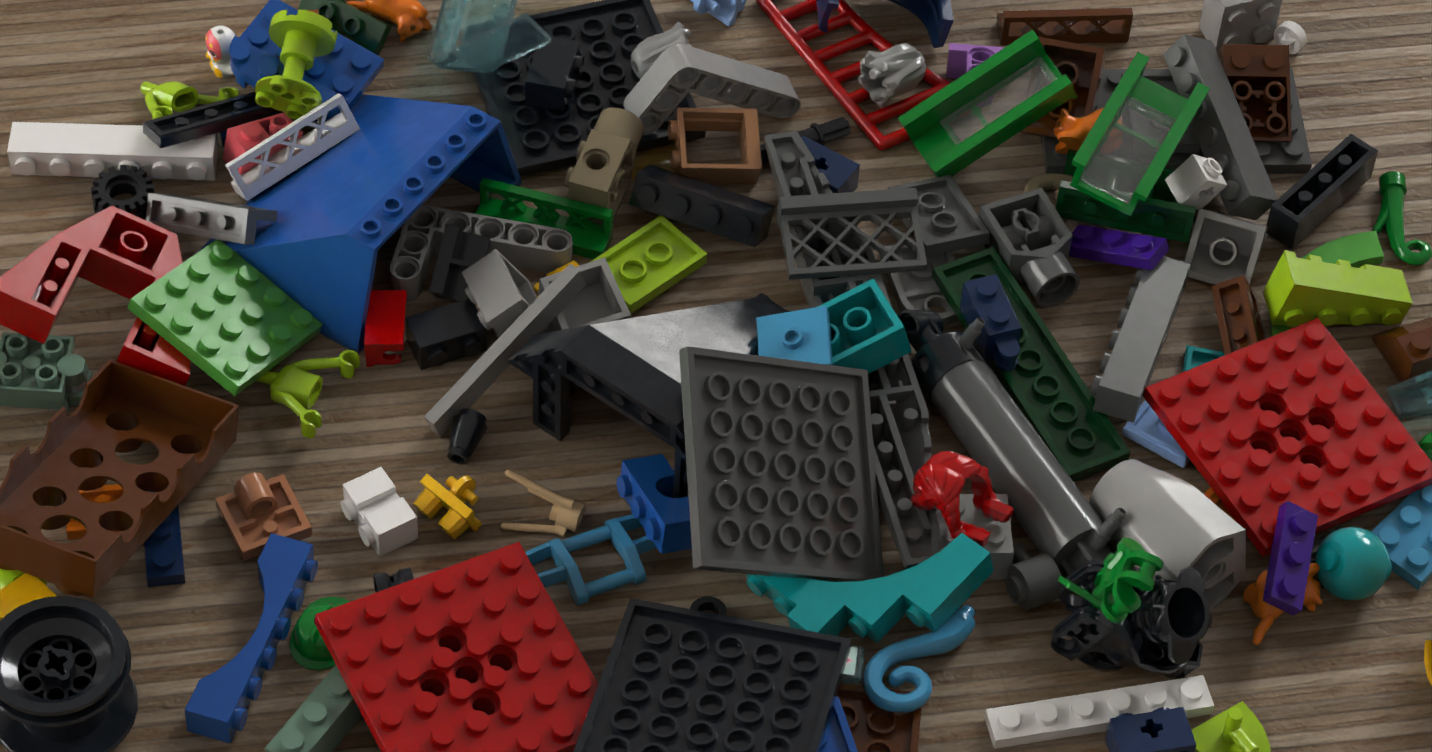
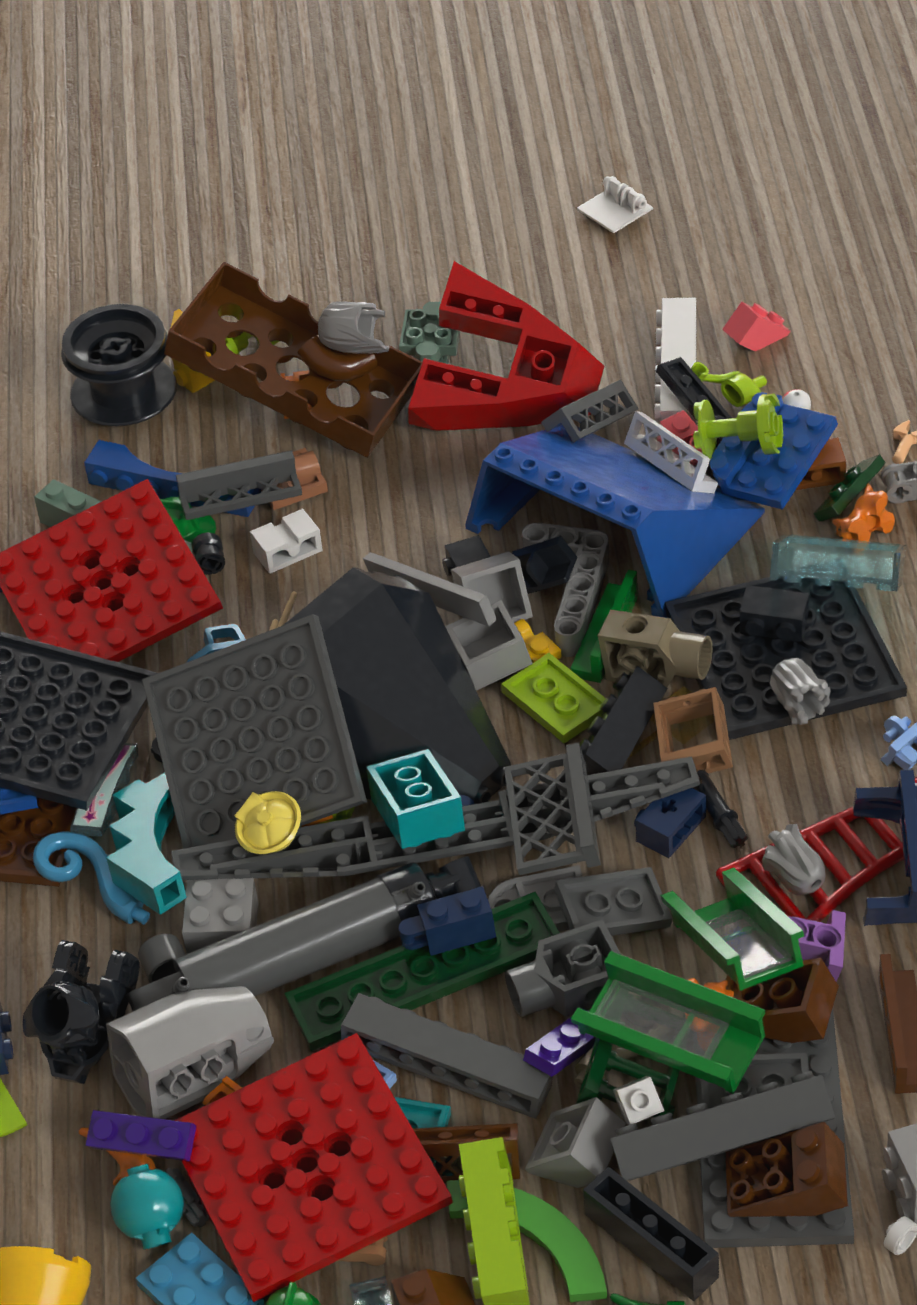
camera: 100 degrees right, 5 degrees down
(63, 81) = (755, 327): none -> coral slope
(89, 397) = (351, 327): none -> light grey hair
(105, 438) = (333, 364): none -> reddish brown cylinder
(122, 182) = (631, 364): black tyre -> none
(165, 553) = (273, 432): dark blue plate -> none
(225, 316) = (468, 420): bright green plate -> none
(301, 389) = (419, 490): lime piece -> none
(303, 546) = (237, 480): none -> dark grey fence
(385, 327) = (488, 525): red hinge -> none
(459, 514) = (294, 576): yellow hips -> none
(710, 75) = (742, 679): light grey beam -> none
(796, 335) = (398, 753): dark azure plate -> none
(887, 459) = (267, 822): none -> light yellow piece
(939, 487) = (239, 856): red hair -> none
(1092, 711) = (25, 979): white plate -> none
(1114, 582) = (67, 947): green piece -> none

